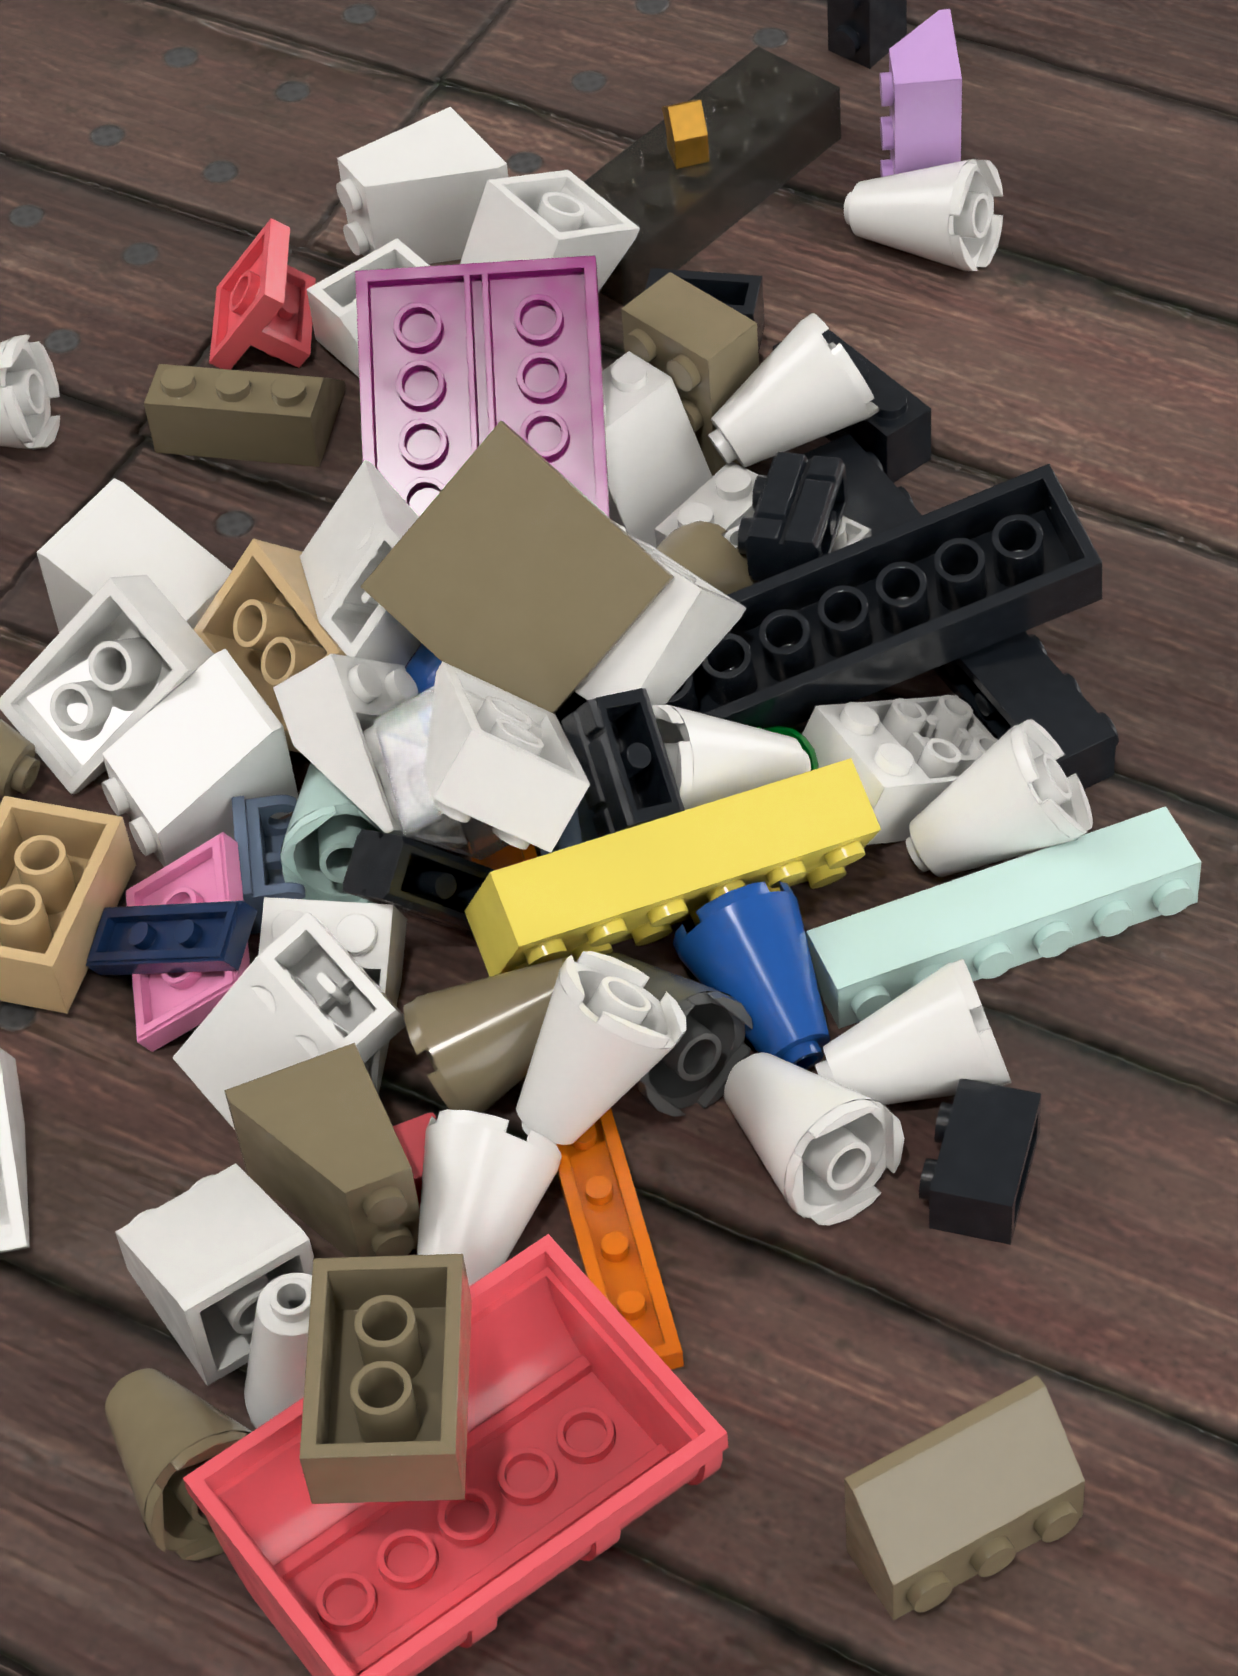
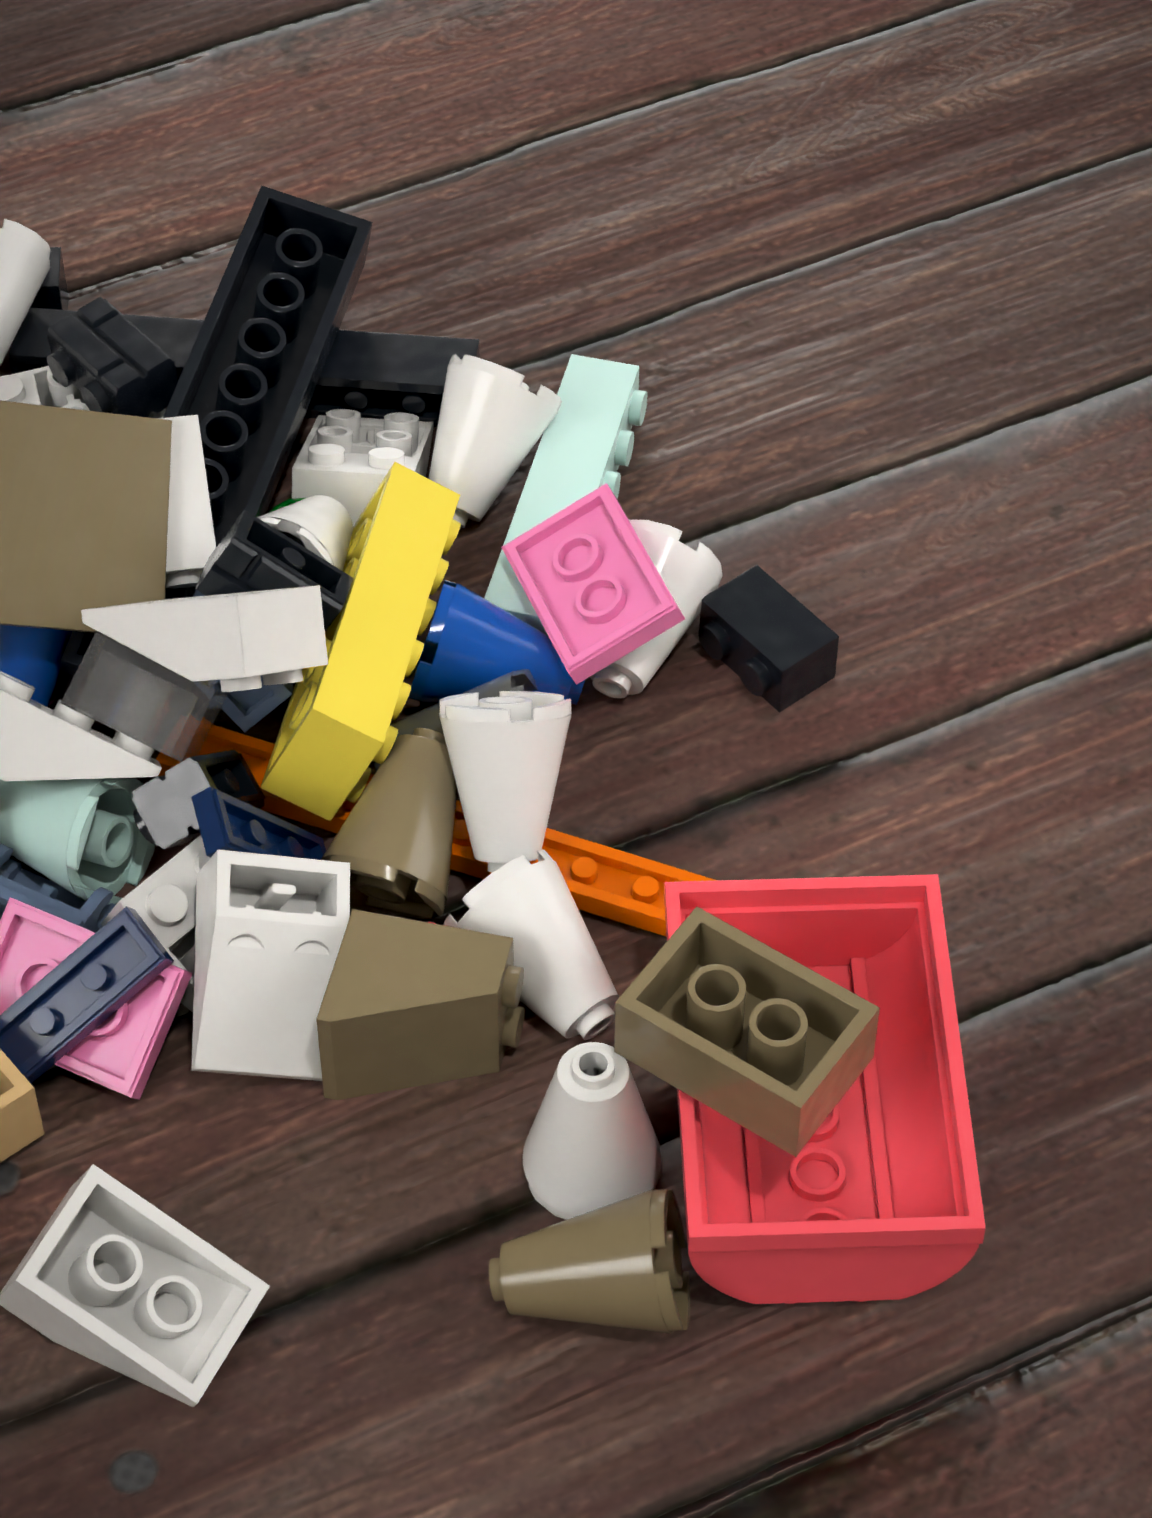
camera: 60 degrees left, 0 degrees up
(208, 1262) = (436, 1145): white slope -> none
(386, 936) = (240, 827): none -> dark blue tile
(814, 1136) = (656, 713): white cone -> none
(874, 984) = (592, 584): none -> bright pink tile
(963, 1499) = (1058, 813): slope -> none

